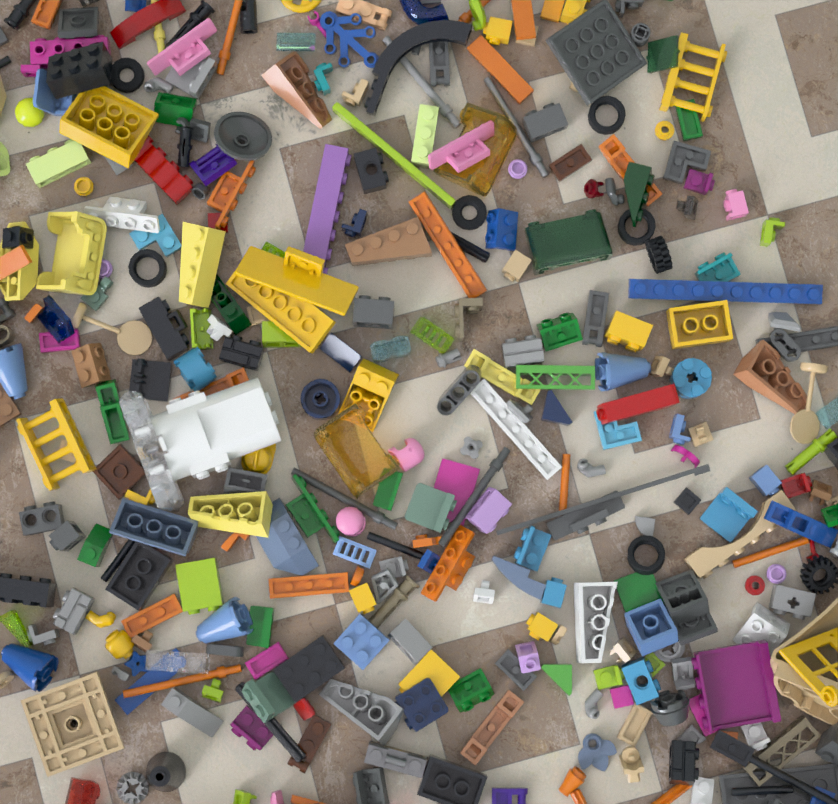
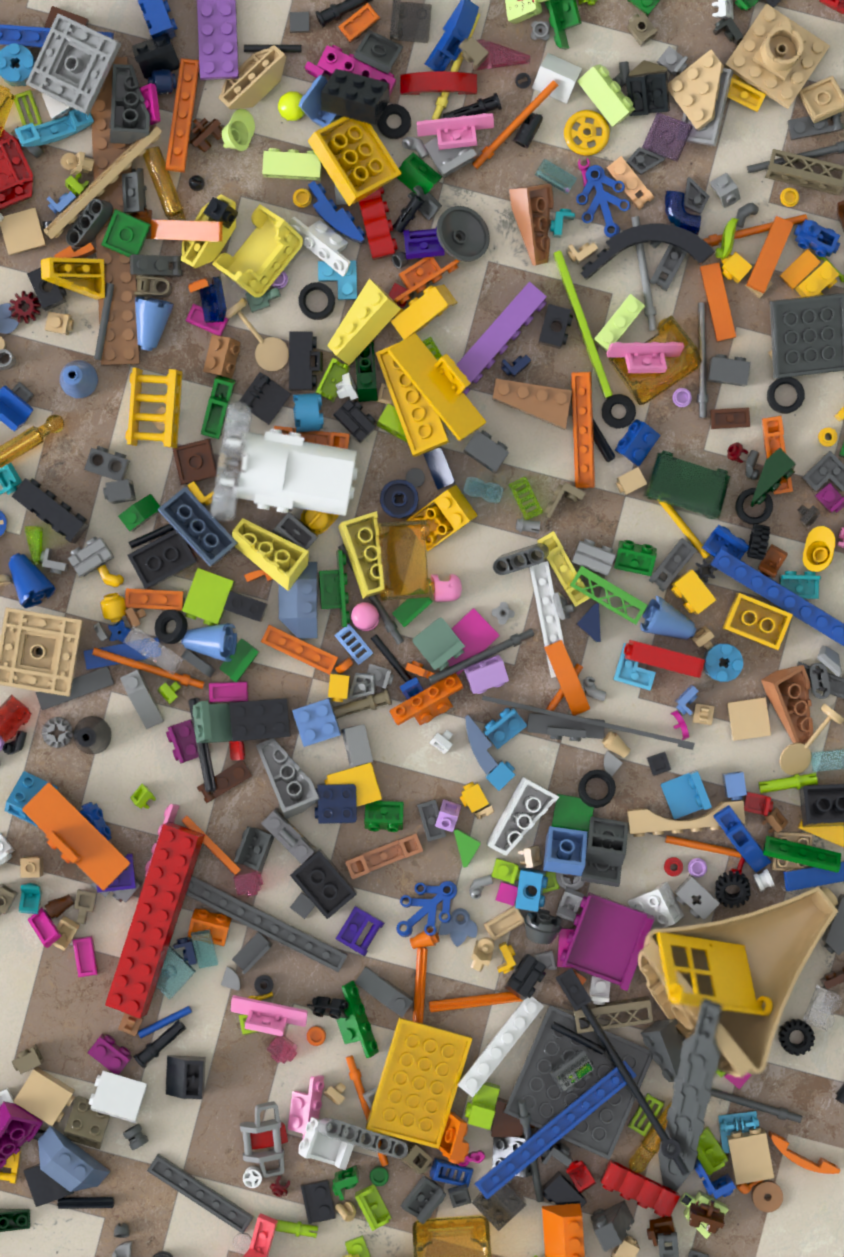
camera: 30 degrees right, 5 degrees up
(128, 187) = (340, 220): none -> blue slope
(130, 734) = (81, 686): none -> dark grey tile
(171, 631) = (162, 621): none -> black tyre
(238, 574) = (245, 606): none -> black brick
(246, 222) = (423, 310): none -> yellow wedge
(316, 464) = (364, 552): none -> light yellow wedge
(324, 371) = (415, 477): none -> dark grey tile
(558, 749) = (429, 907): none -> blue plant
(562, 471) = (567, 677): none -> orange slope
(588, 281) = (685, 529): none -> yellow bar
(625, 270) = (723, 538): none -> blue bracket
(631, 304) = (710, 570): none -> black gear
(637, 505) = (615, 744): none -> tan cone
(654, 750) = (508, 953): none -> yellow bracket
(681, 264) = (772, 561): none -> dark orange bracket
(715, 230) = (819, 549): none -> yellow piece
(743, 415) = (749, 719): none -> tan tile

